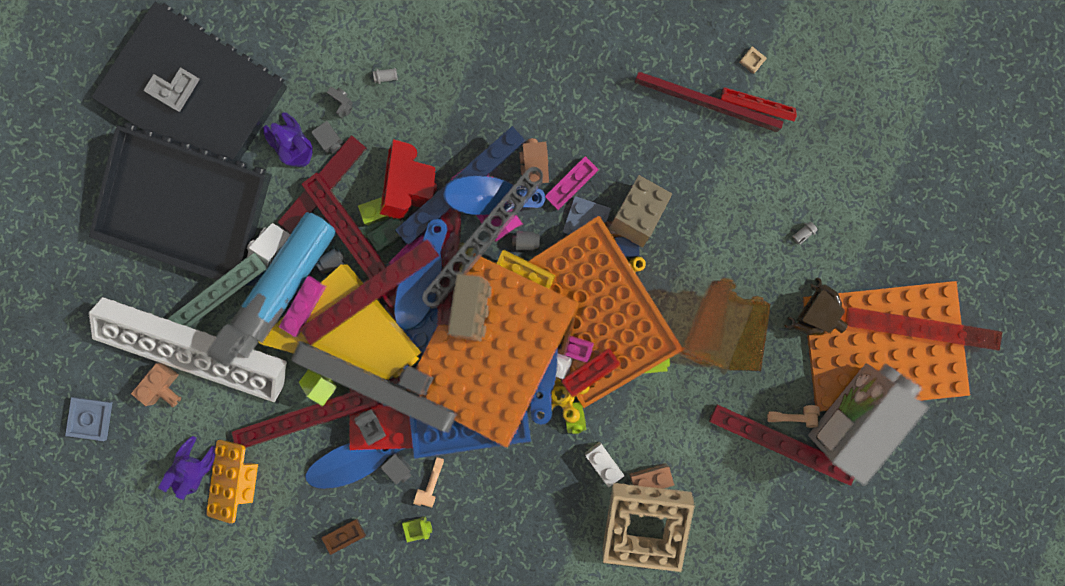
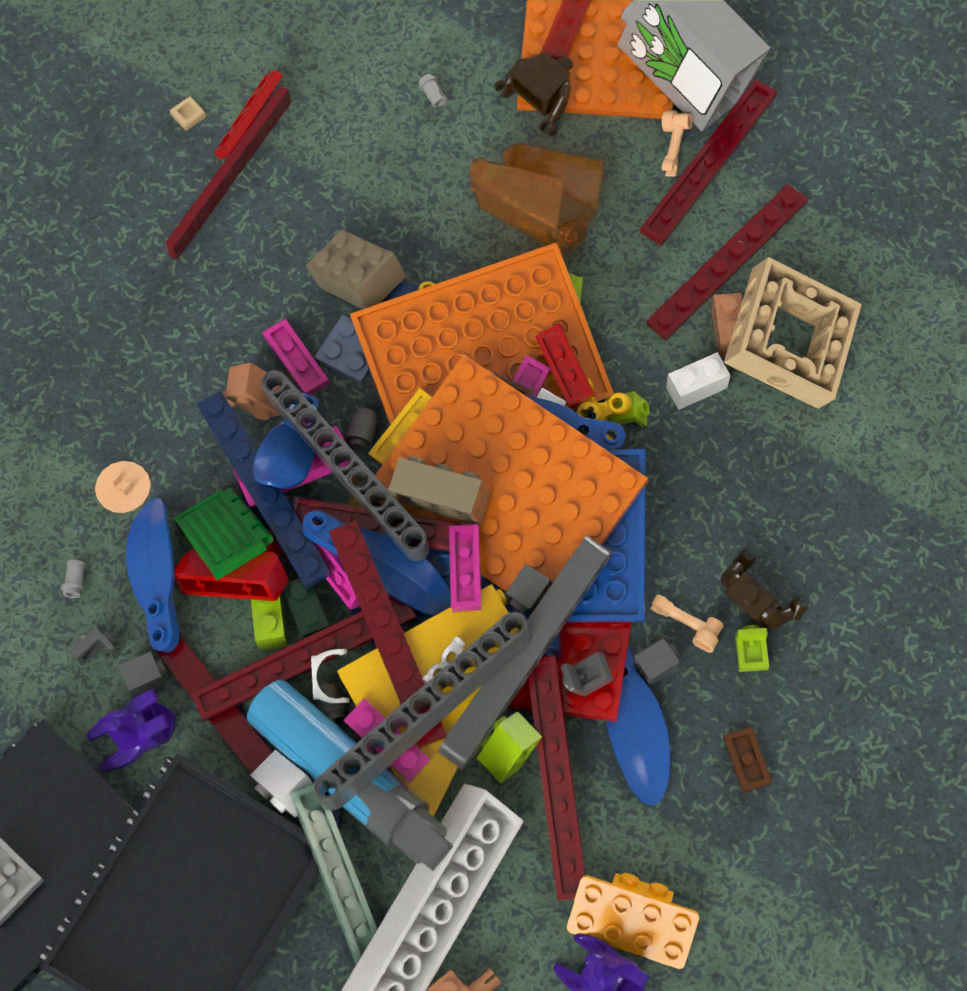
camera: 75 degrees left, 20 degrees down
(305, 321) = (419, 724): none -> dark grey beam
(329, 255) = (316, 661): none -> white cap
(342, 327) = (456, 646): none -> white cap
(397, 125) = (152, 573): none -> blue plant
(421, 335) = (465, 568): none -> dark pink plate
(428, 166) = (224, 531): none -> green hinge
(450, 524) = (754, 599): none -> dark brown torso
(457, 90) = (123, 487): none -> light nougat piece
(705, 470) = (726, 262): none -> dark red plate

